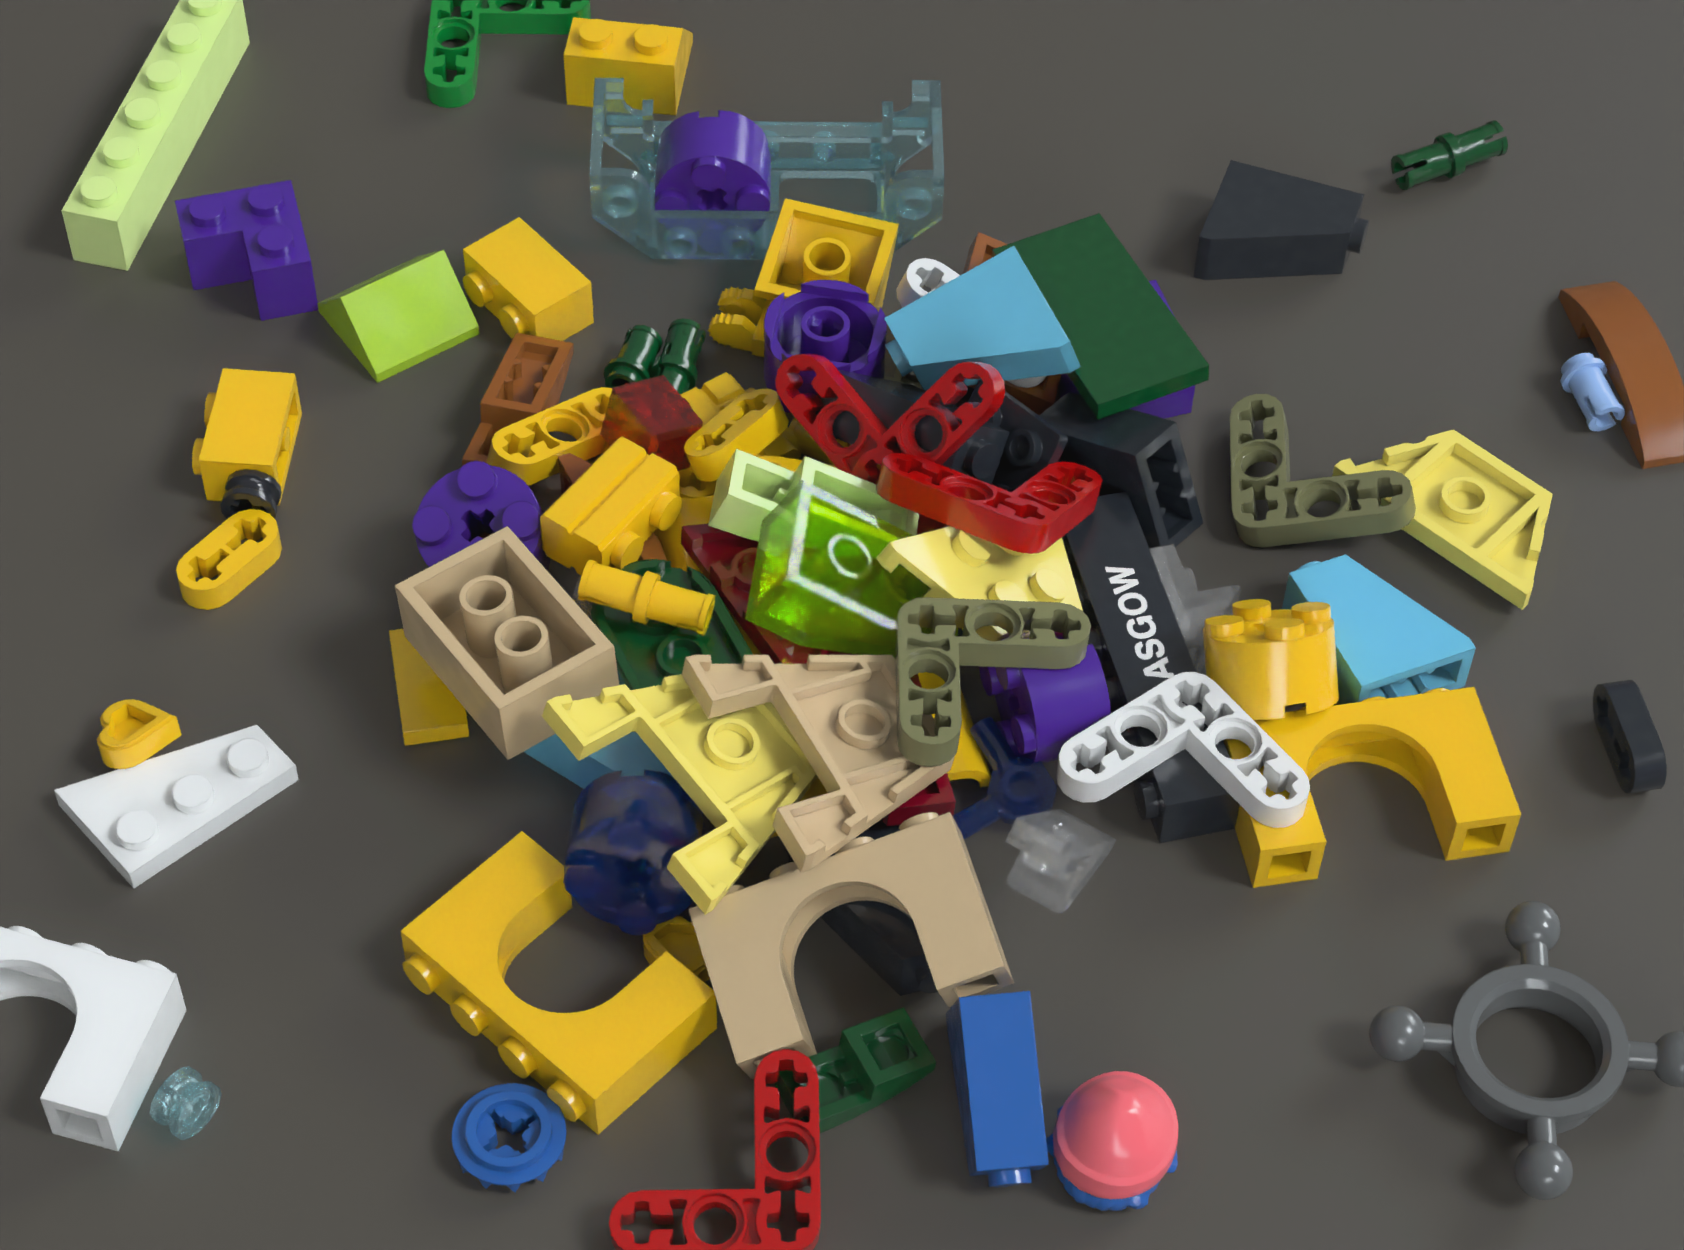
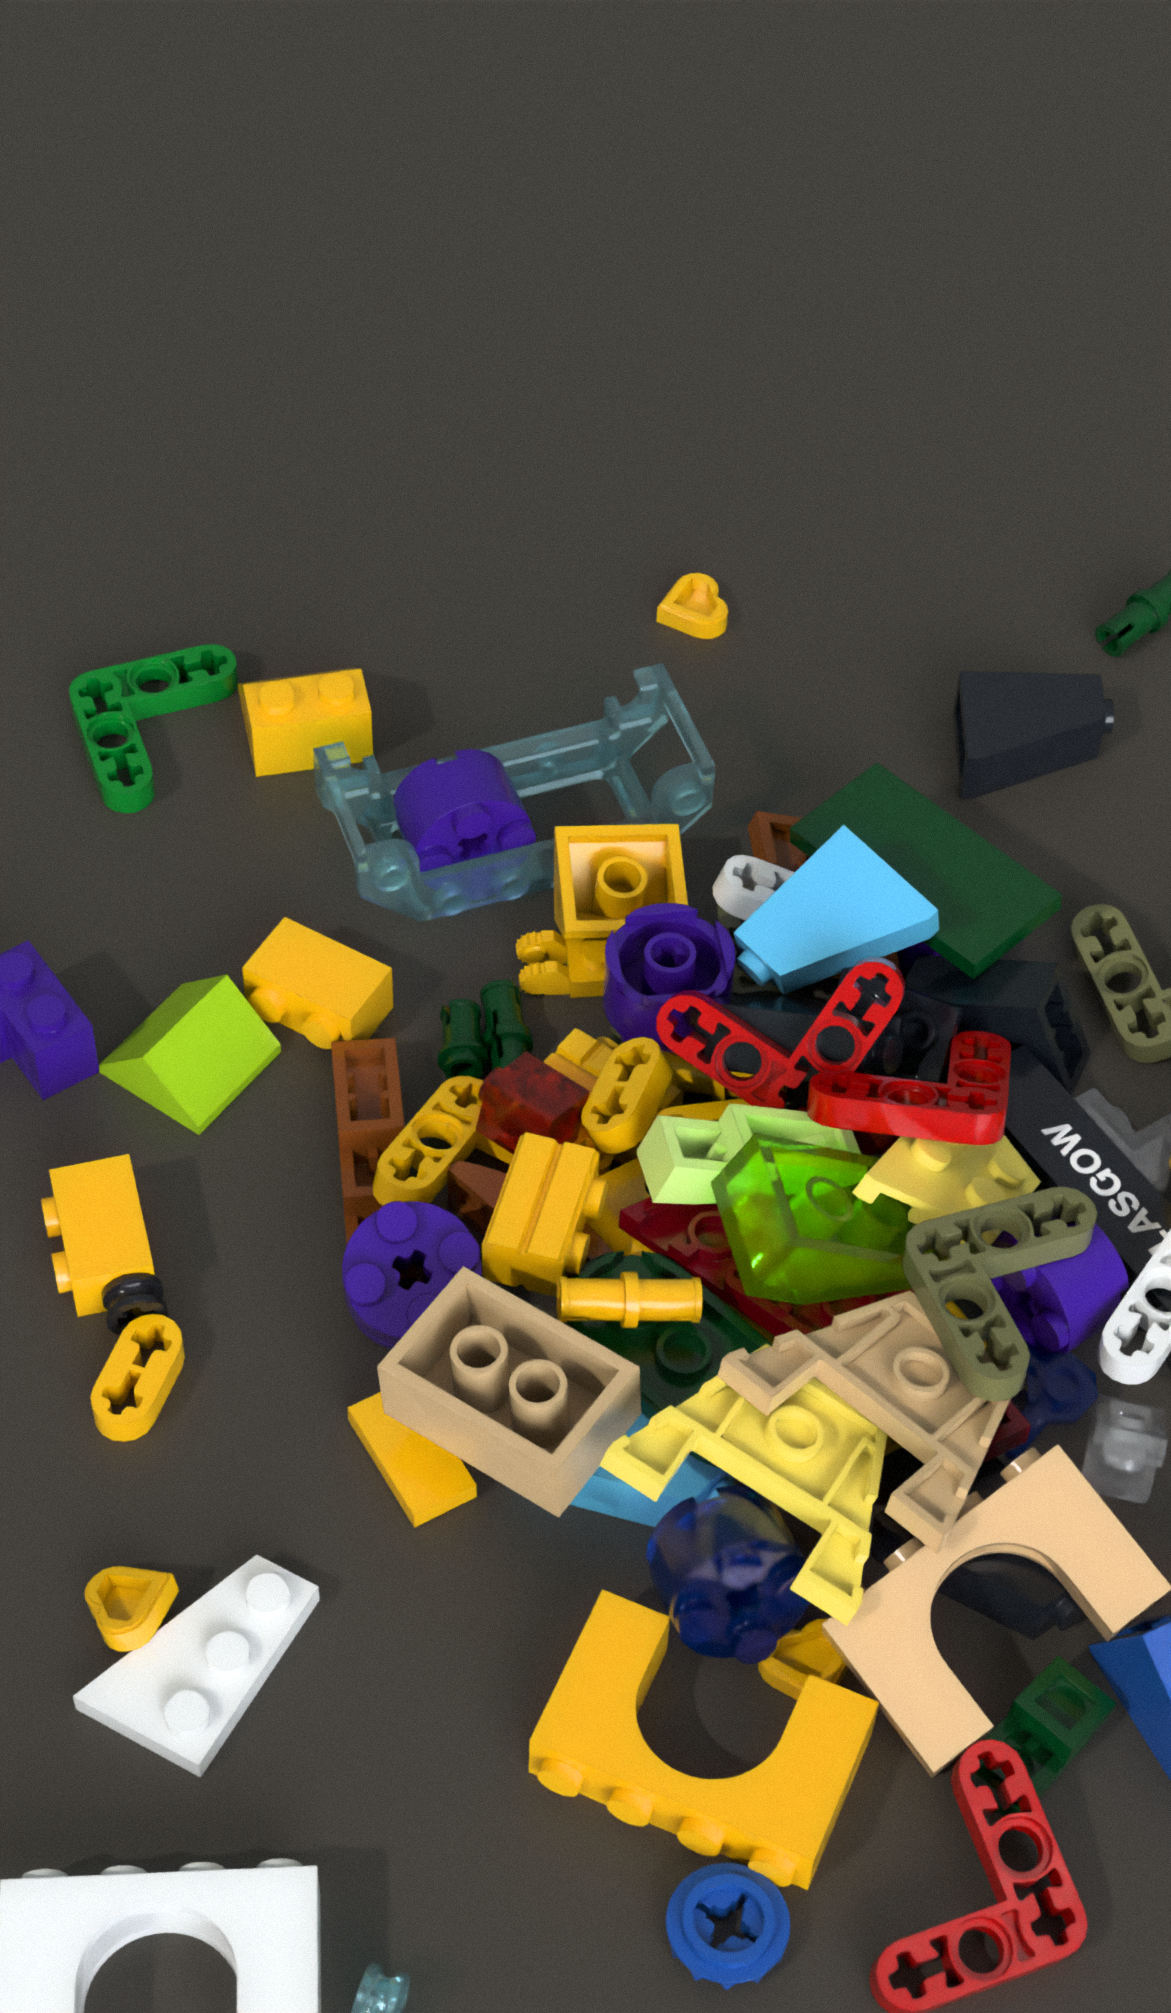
camera: 20 degrees left, 0 degrees up
(1025, 53) = (694, 607): none -> yellow tile

